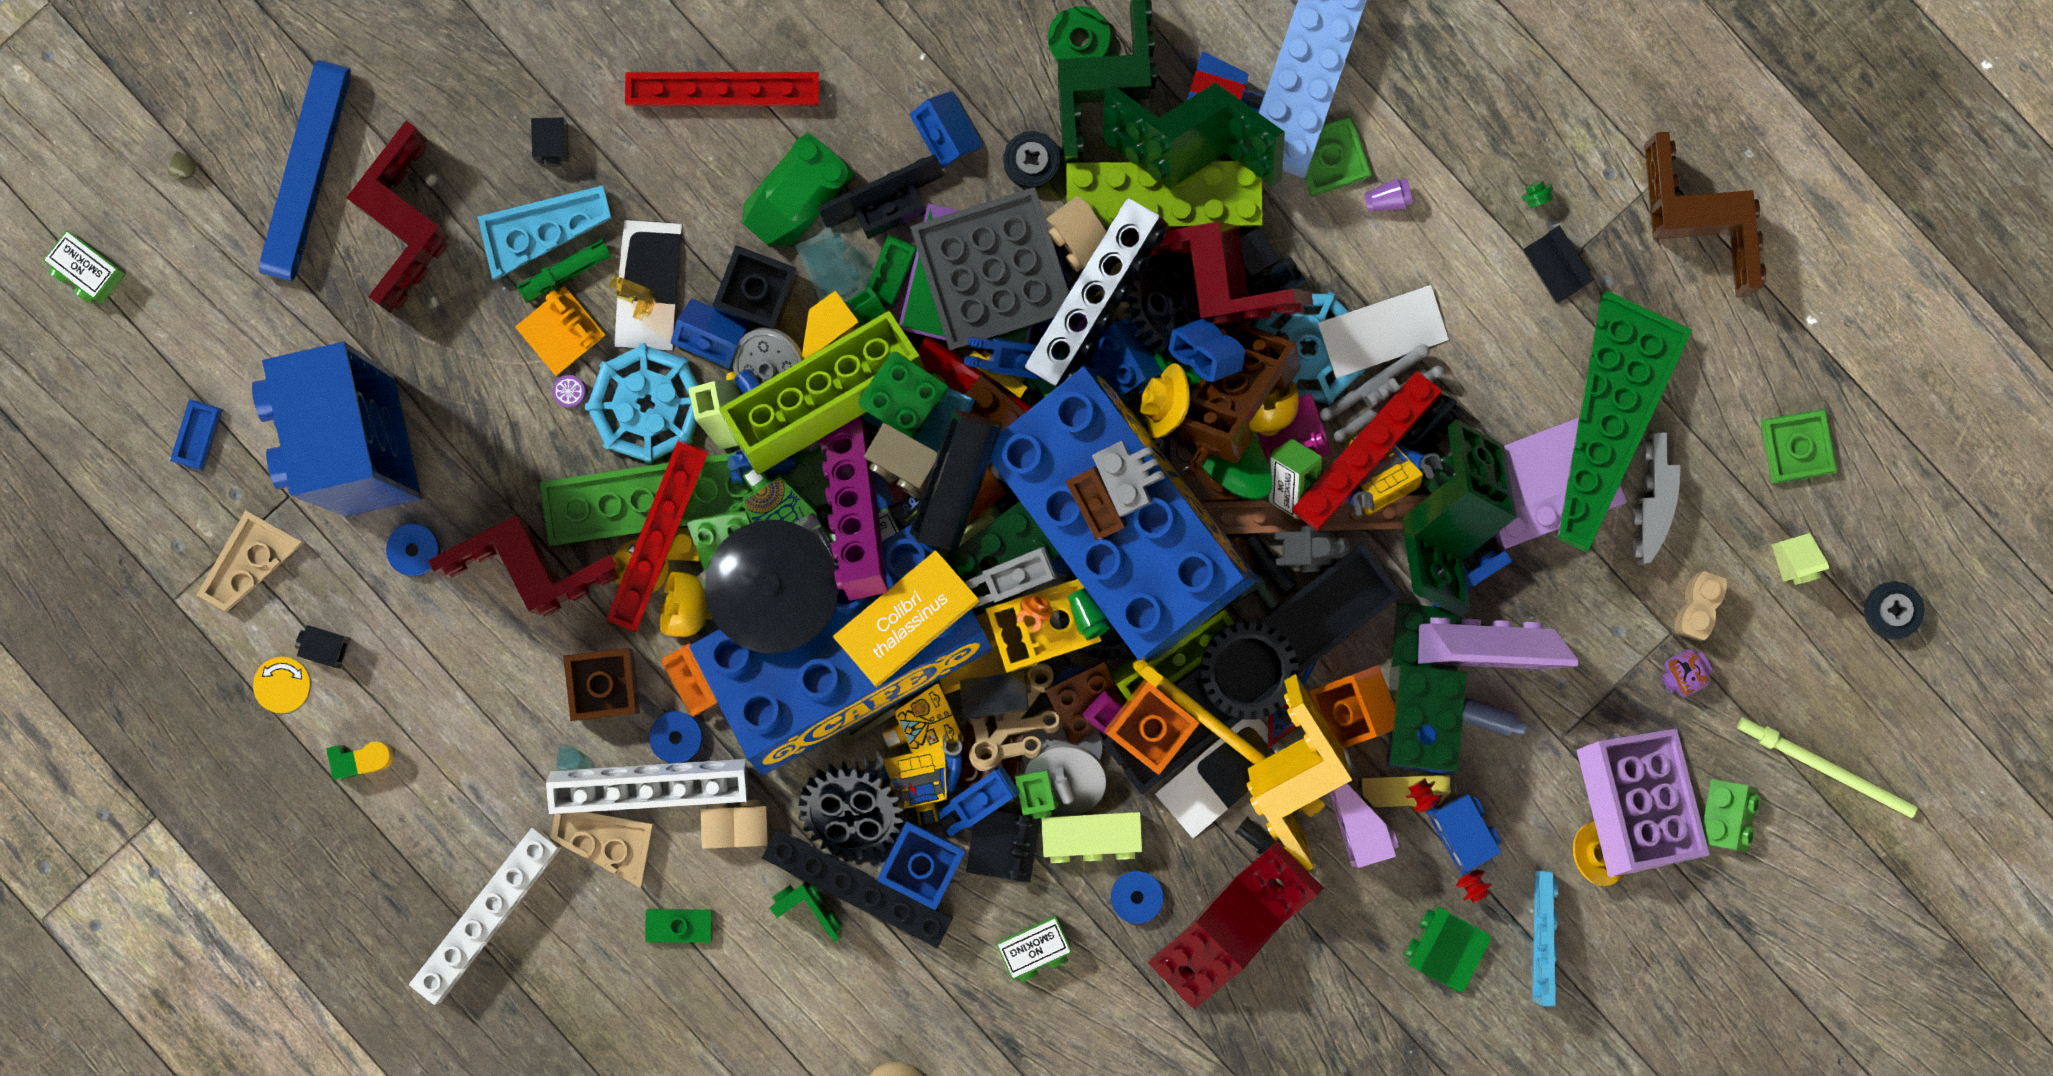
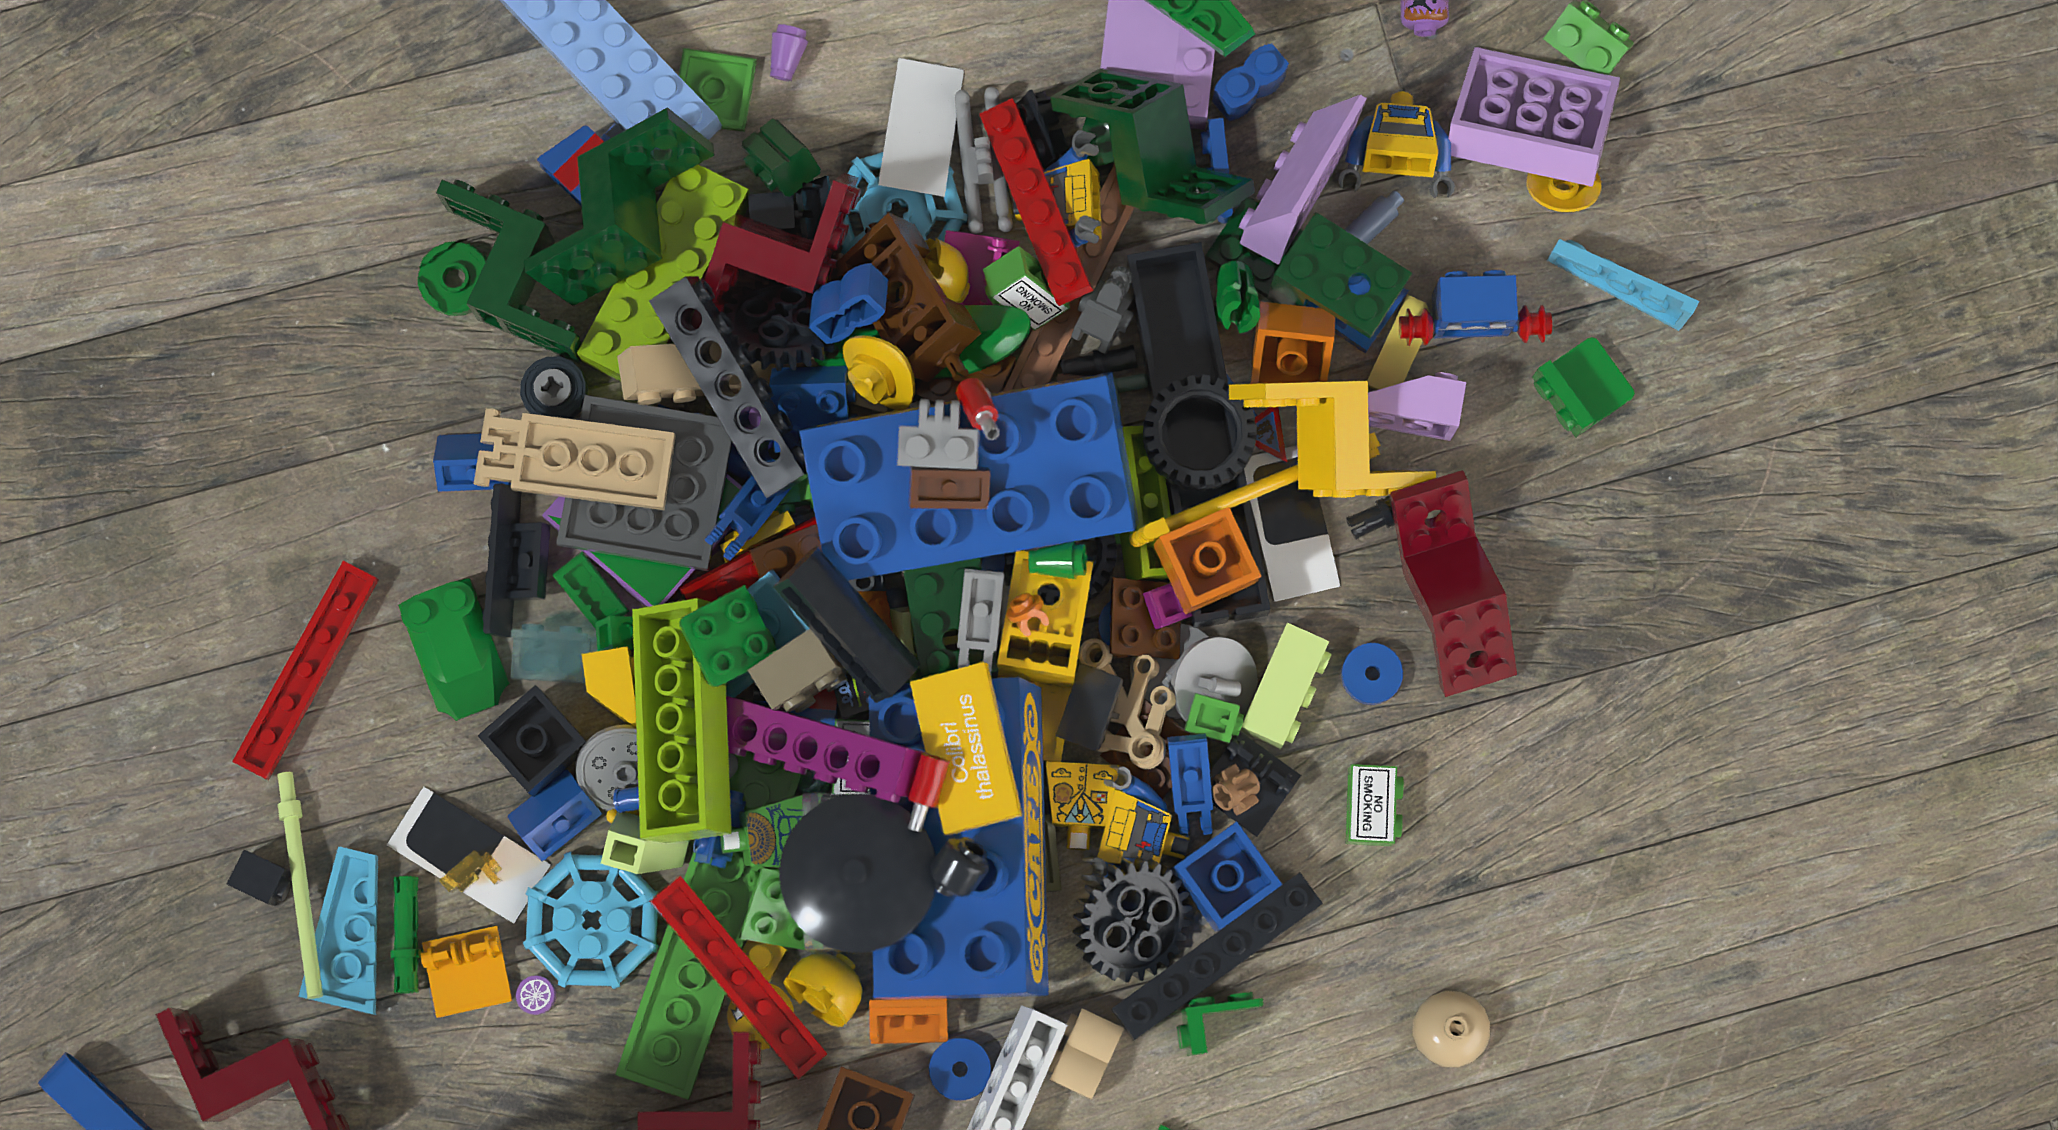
camera: 60 degrees left, 5 degrees down
(610, 136) = (290, 812): none -> yellowish green bar
(812, 660) = (959, 867): none -> black head
(860, 604) = (926, 787): none -> red piece
(980, 208) = (577, 459): none -> tan hinge
(991, 838) = (1236, 789): none -> medium nougat gear
(1167, 493) = (978, 406): none -> red piece
(1300, 236) = (779, 158): none -> dark green brick
(1373, 644) = (1236, 297): none -> green piece
(1545, 562) = (1258, 78): none -> blue brick
(1567, 709) = (1400, 142): none -> torso

